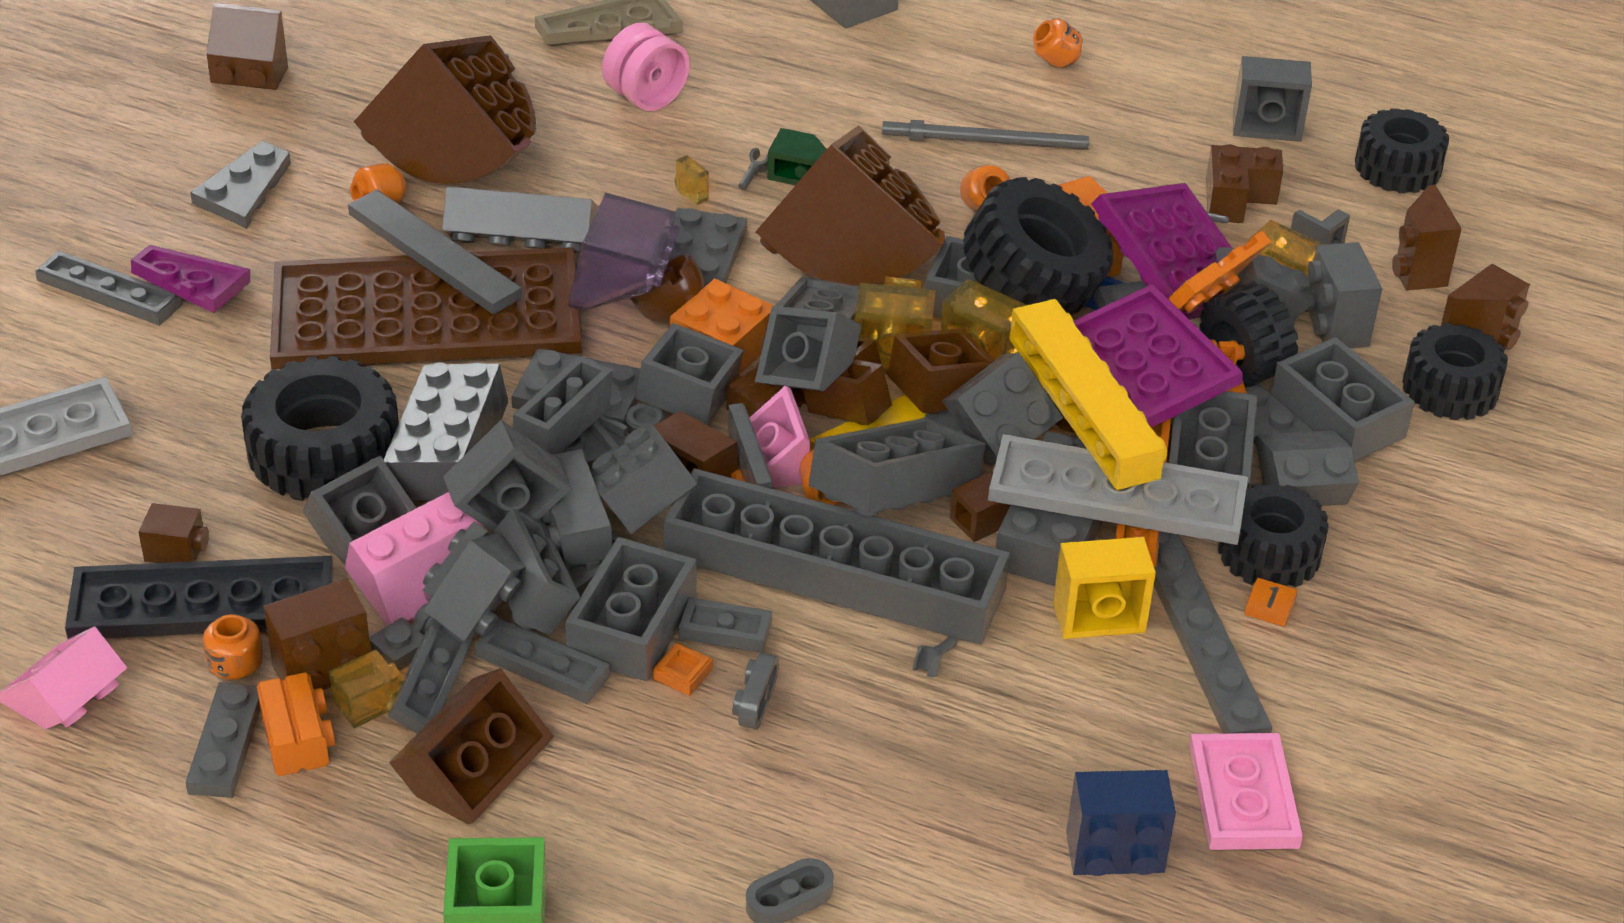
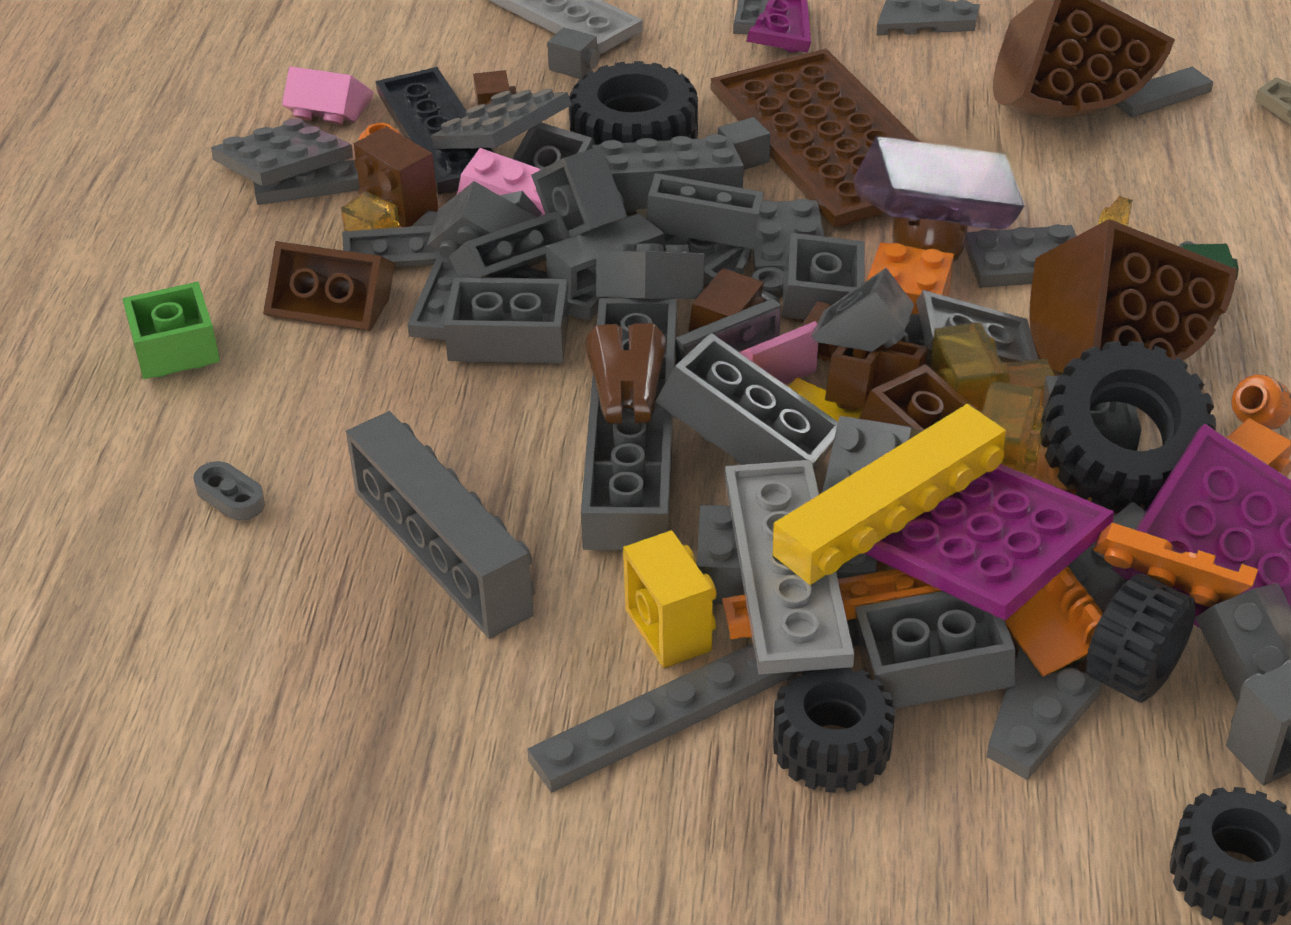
camera: 75 degrees right, 0 degrees up
(128, 449) = (572, 53): none -> dark grey brick
(168, 742) = (281, 151): none -> dark grey plate
(282, 522) = (500, 120): none -> dark grey plate
(294, 723) = (319, 199): orange brick -> none
(380, 177) = (959, 68): orange head -> none
(406, 363) = (749, 140): none -> dark grey brick
(435, 251) = (889, 108): dark grey tile -> none
(517, 217) = (969, 125): slope -> none
(645, 66) = (1243, 144): bright pink wheel -> none
(683, 669) = (471, 377): orange tile -> none
(725, 624) = (527, 384): dark grey plate -> none
(760, 683) = (451, 418): dark grey plate -> none
(813, 519) = (626, 376): none -> reddish brown piece
(930, 657) = (541, 512): dark grey hand -> none
(937, 720) = (442, 524): none -> dark grey brick
(1120, 822) = (346, 669): dark blue brick -> none
(1245, 791) = (450, 773): bright pink plate -> none
(1271, 602) = (748, 755): orange tile -> none
(1311, 463) = (965, 735): dark grey slope -> none
(1343, 393) = (1101, 751): dark grey brick -> none

